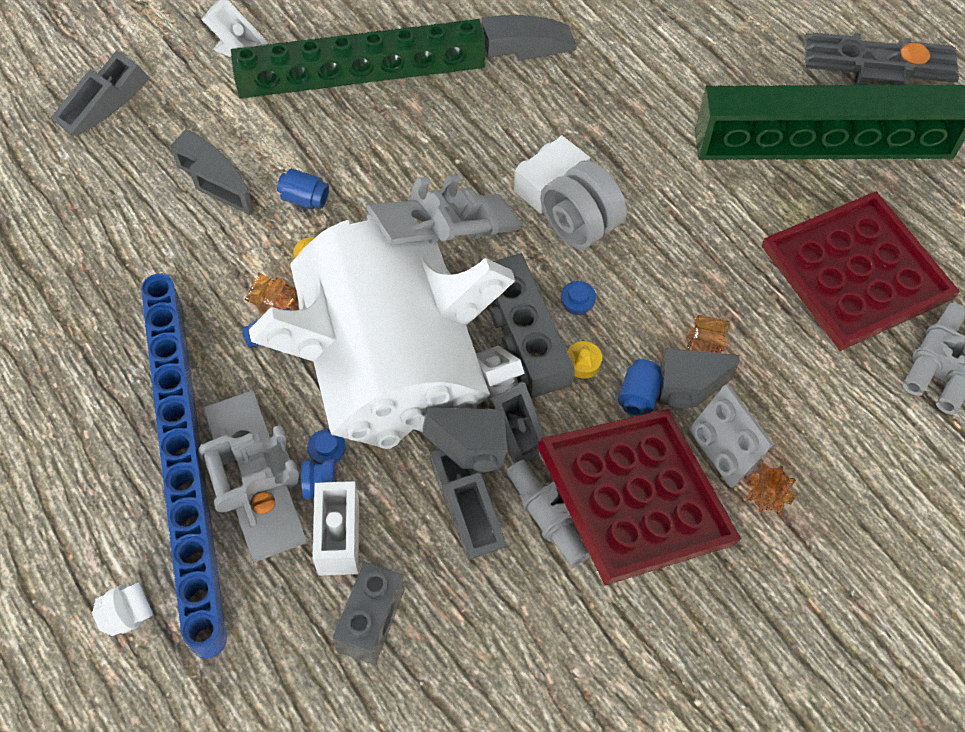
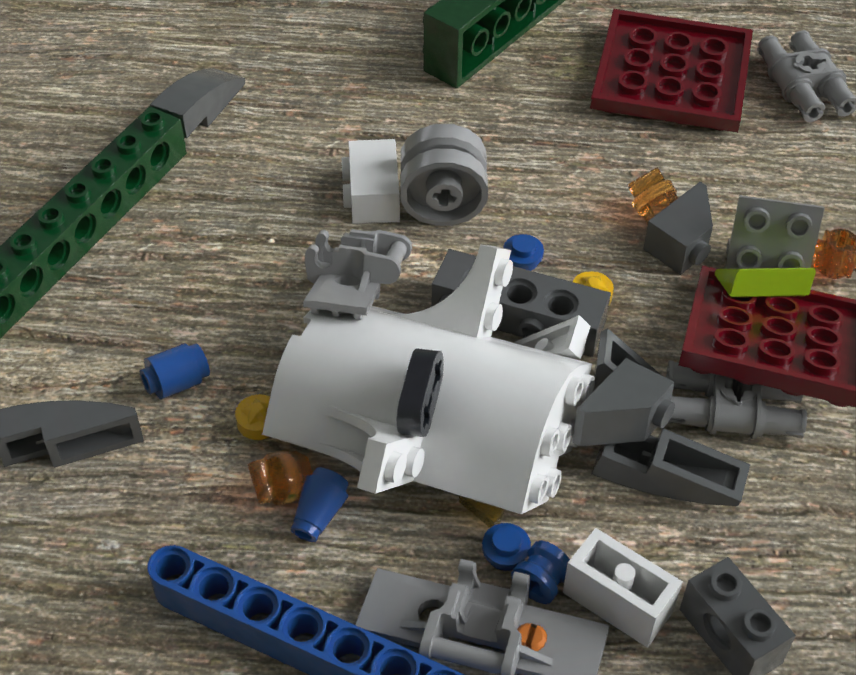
camera: 50 degrees left, 10 degrees down
(344, 311) = (420, 392): none -> black beam
(640, 387) = (663, 269): blue brick -> none
(683, 454) = (766, 281): none -> lime slope

